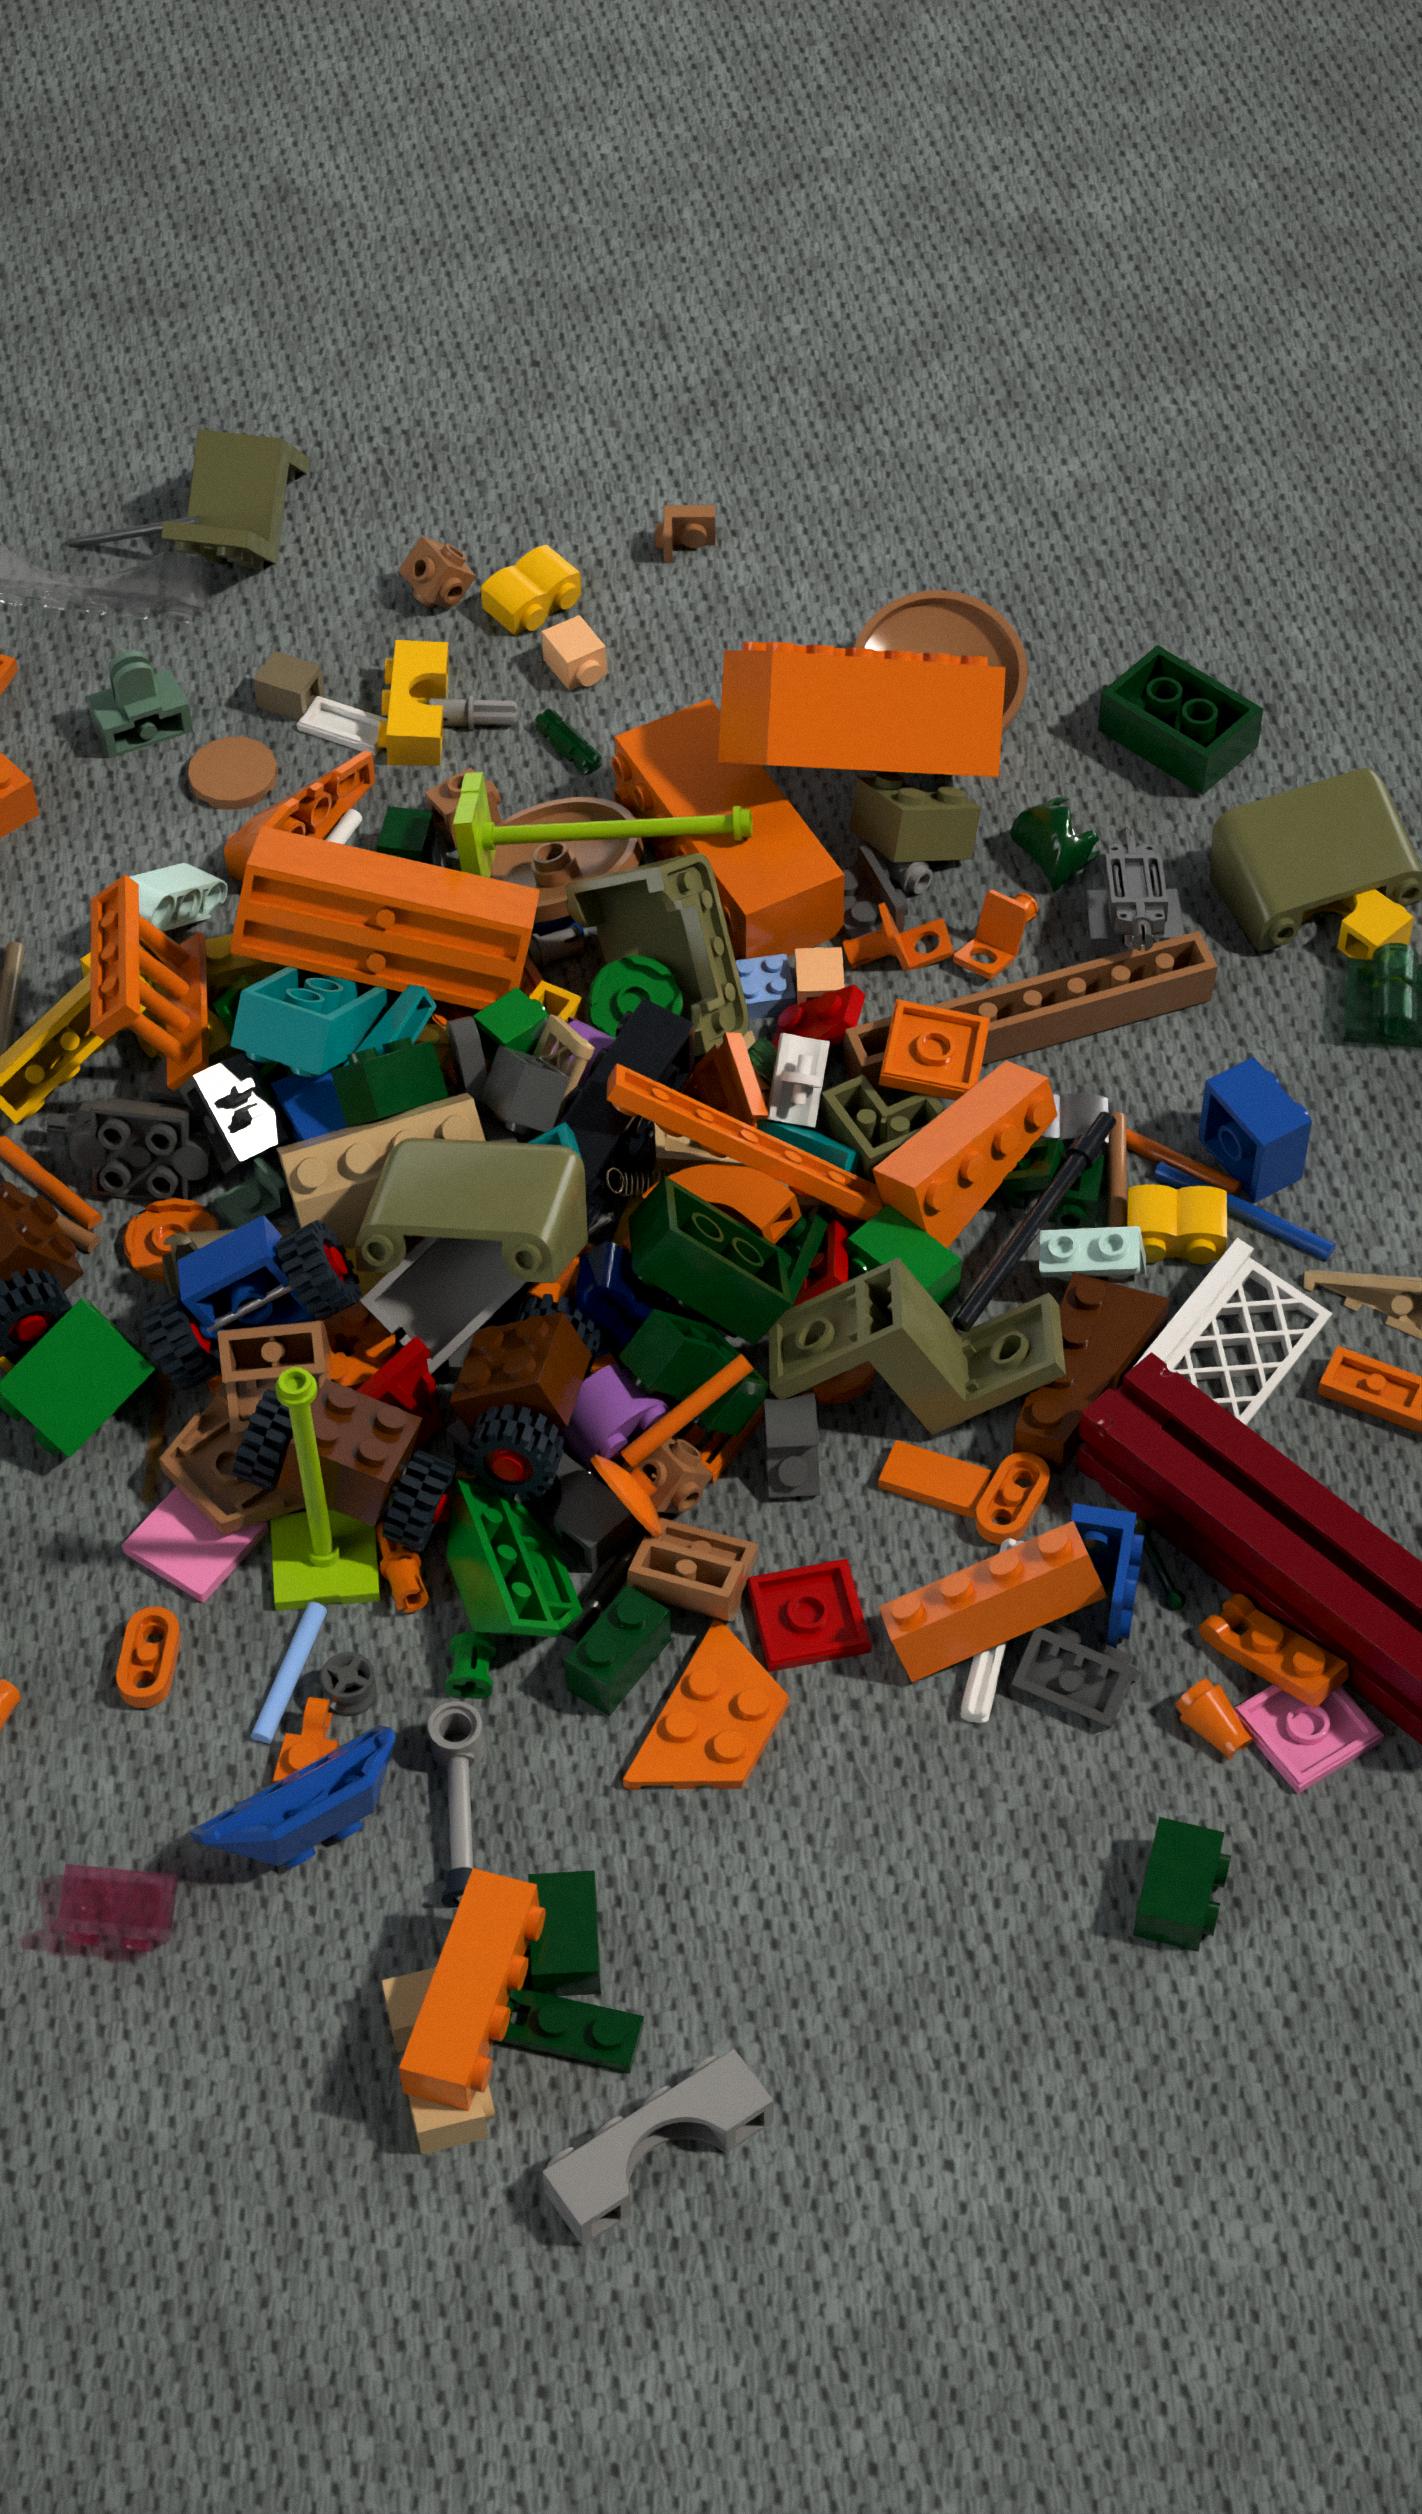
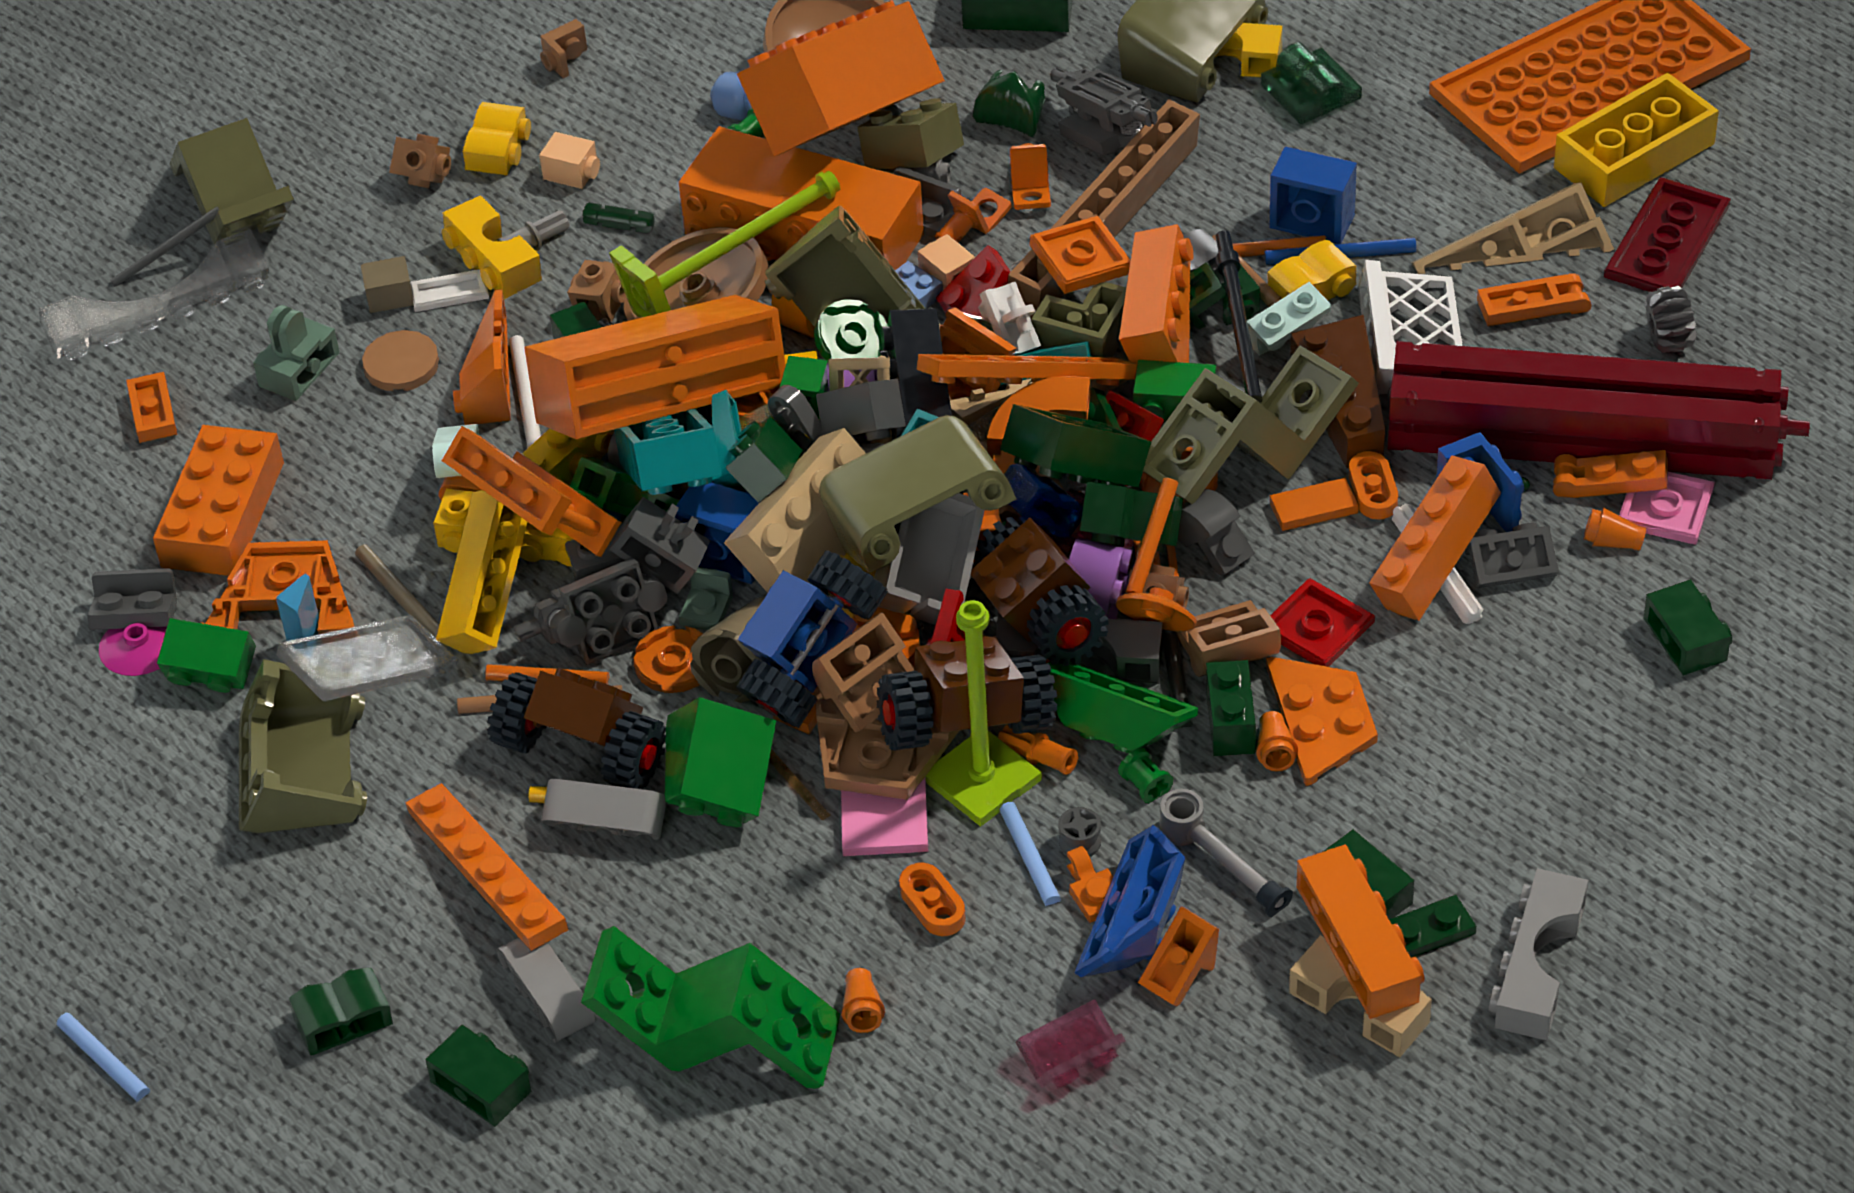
camera: 35 degrees left, 5 degrees down
(300, 1888) = (1180, 956): none -> orange slope
(630, 1719) = (1275, 743): none -> orange cone

